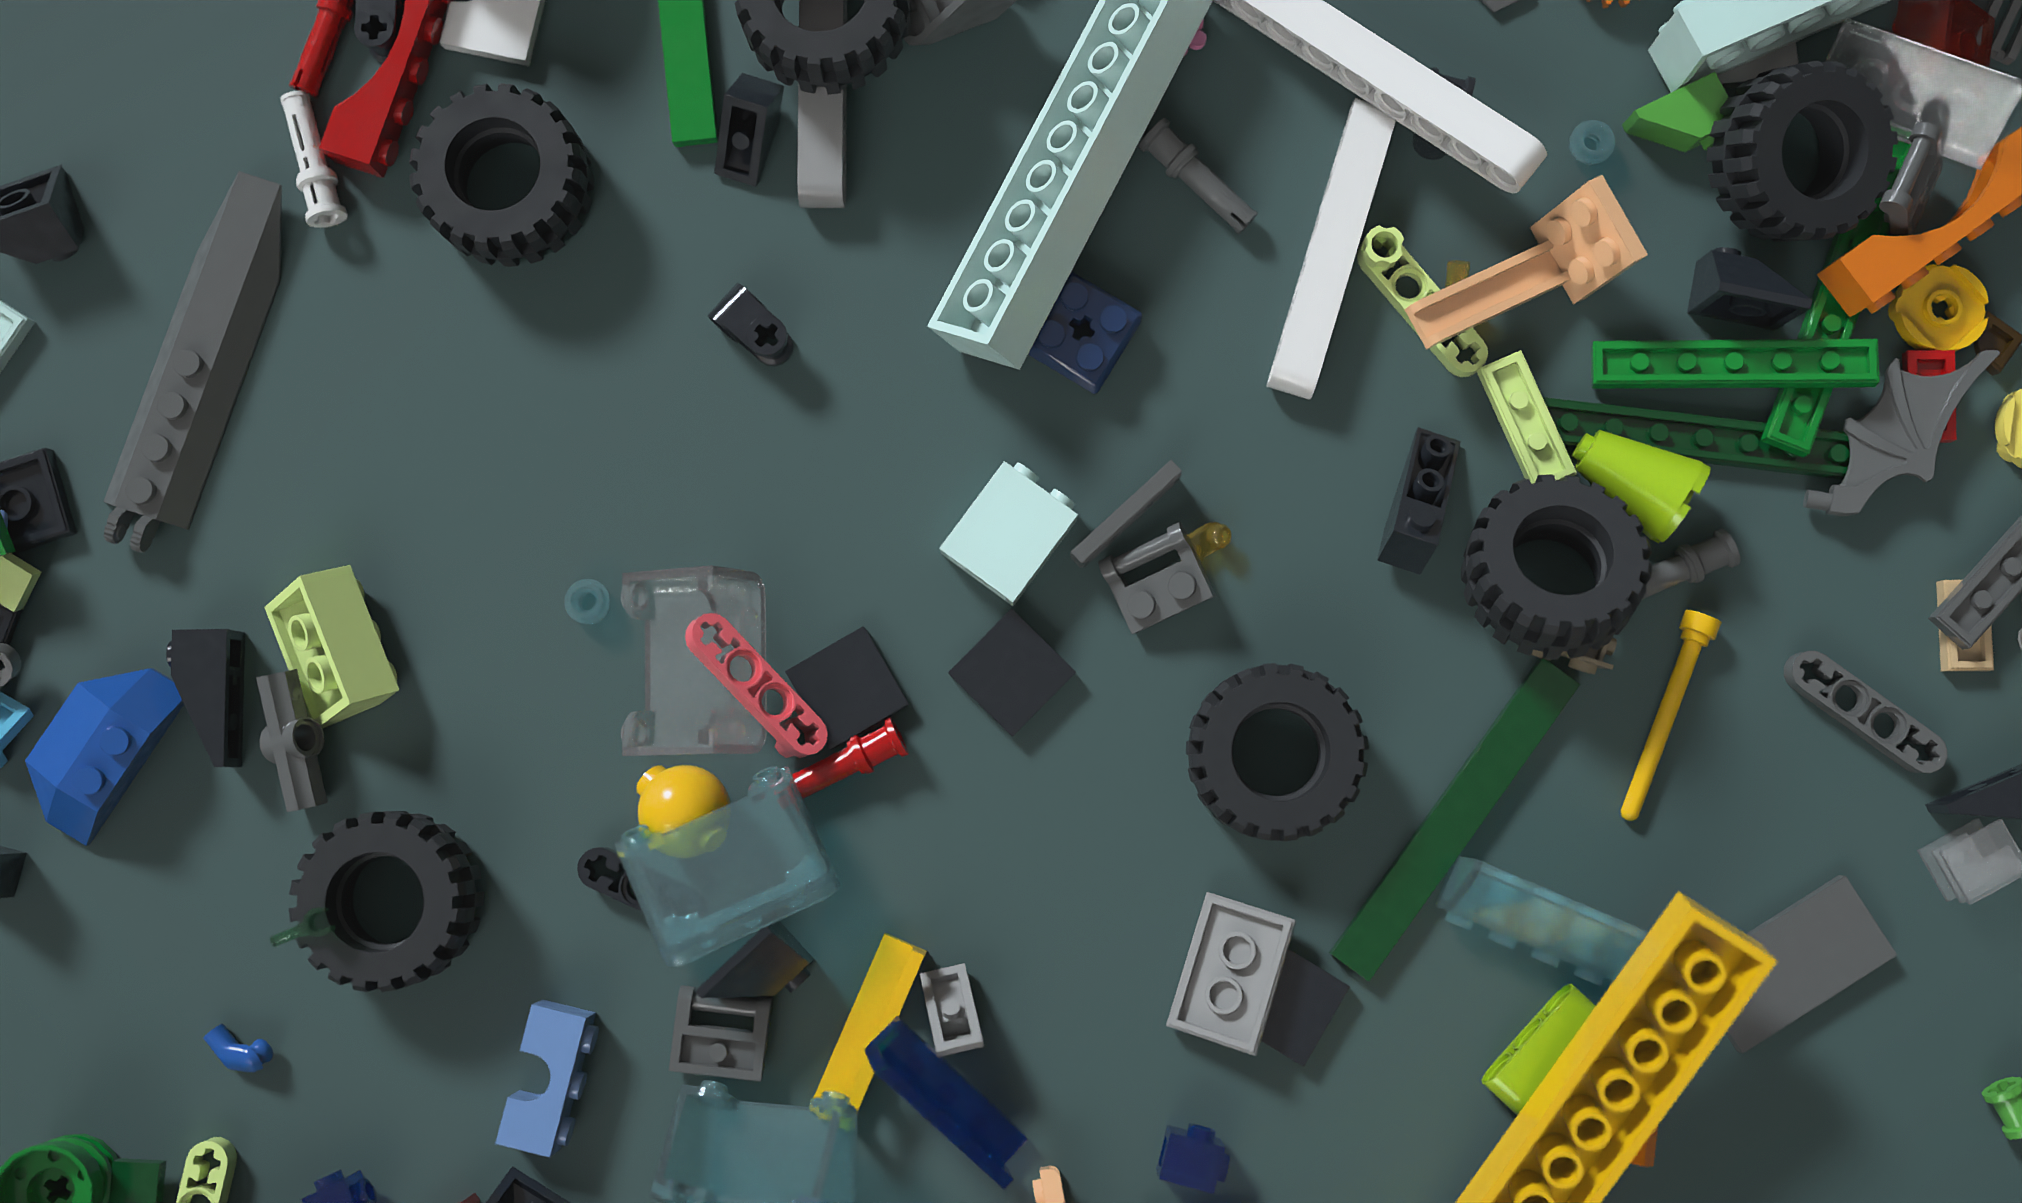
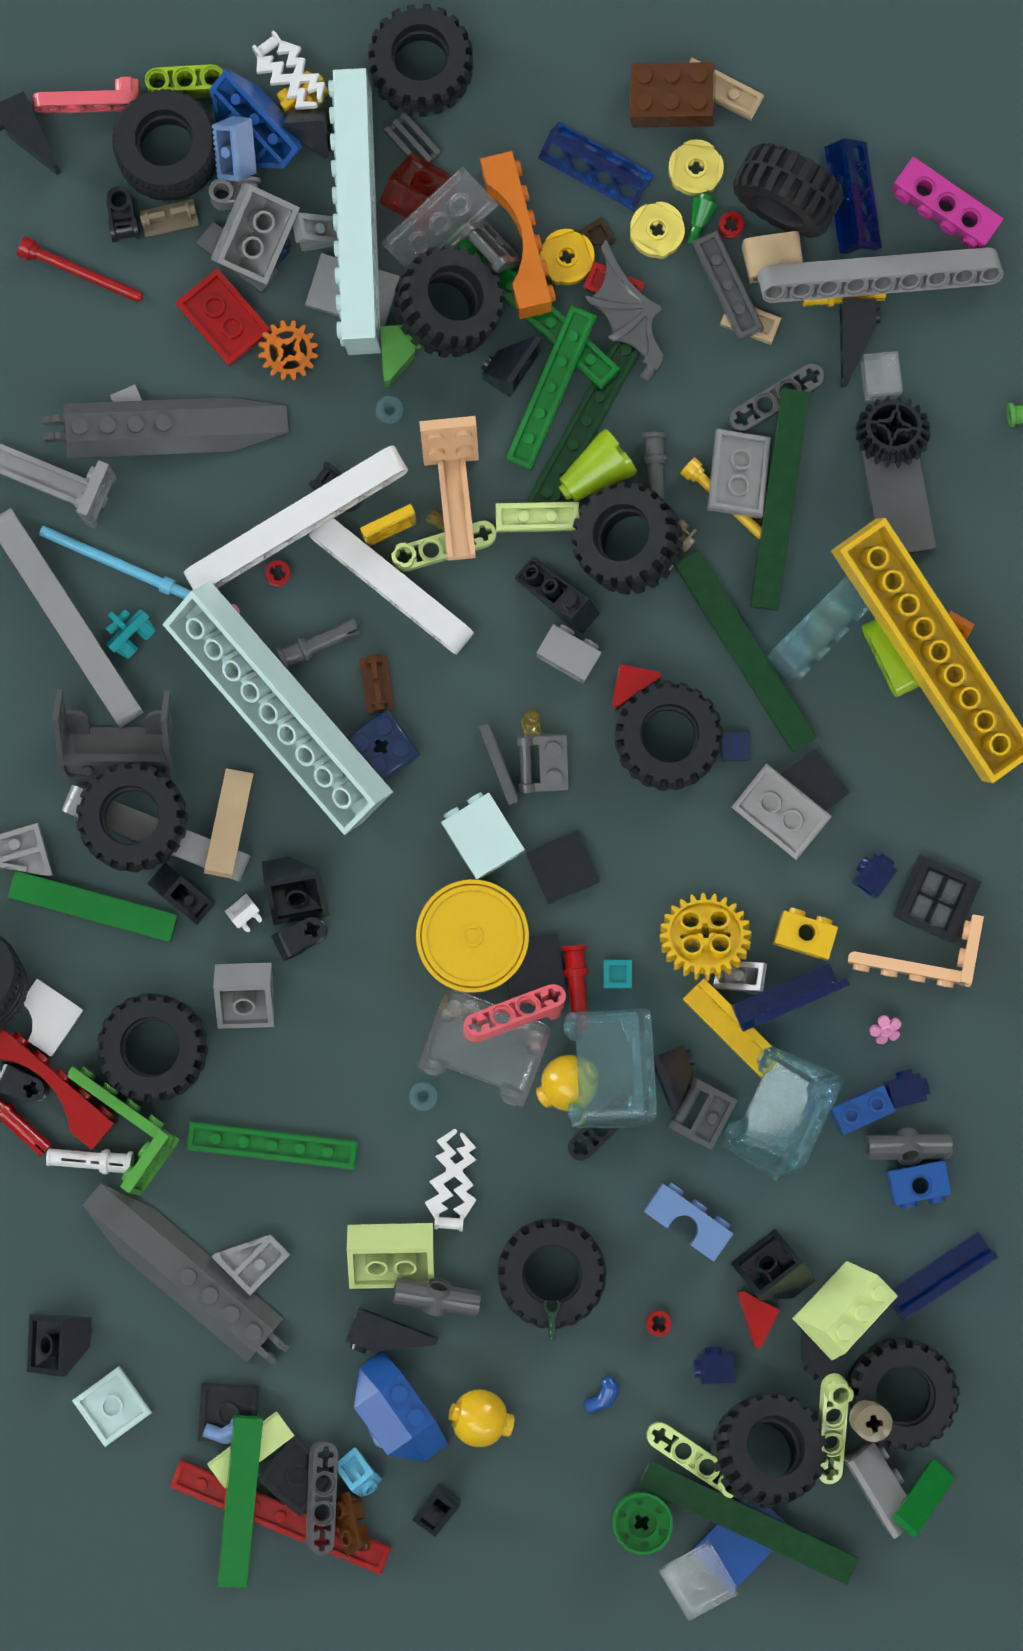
camera: 75 degrees left, 0 degrees up
(132, 878) = (480, 1418): none -> yellow brick
(249, 448) = (252, 1261): none -> light grey wing
(363, 1093) = (667, 1323): none -> red bush
(369, 244) = (152, 1154): none -> bright green bracket
(432, 411) = (272, 1145): none -> green tile
(495, 690) = (452, 1170): none -> white piece
(634, 278) = (244, 995): none -> light grey slope
(756, 227) = (242, 911): none -> white tile
(815, 285) = (293, 890): none -> black slope
(852, 577) = (472, 936): none -> yellow brick
(876, 152) = (228, 823): none -> tan tile
(882, 819) = (617, 974): none -> teal plate
(954, 948) = (706, 959): none -> yellow gear
(1052, 1114) = (788, 934): none -> yellow brick
(1175, 287) = (376, 683): none -> reddish brown hinge
(1287, 68) = (270, 577): none -> red bush
(1302, 862) = (736, 746): none -> dark blue tile
(1335, 659) = (630, 681): none -> red slope
(1339, 552) = (569, 653): none -> light grey brick
(1419, 204) = (388, 525): none -> yellow tile
(1714, 778) = (779, 499): none -> dark green tile
(1725, 700) = (739, 473): none -> light grey tile
(1909, 941) = (877, 425): none -> black gear

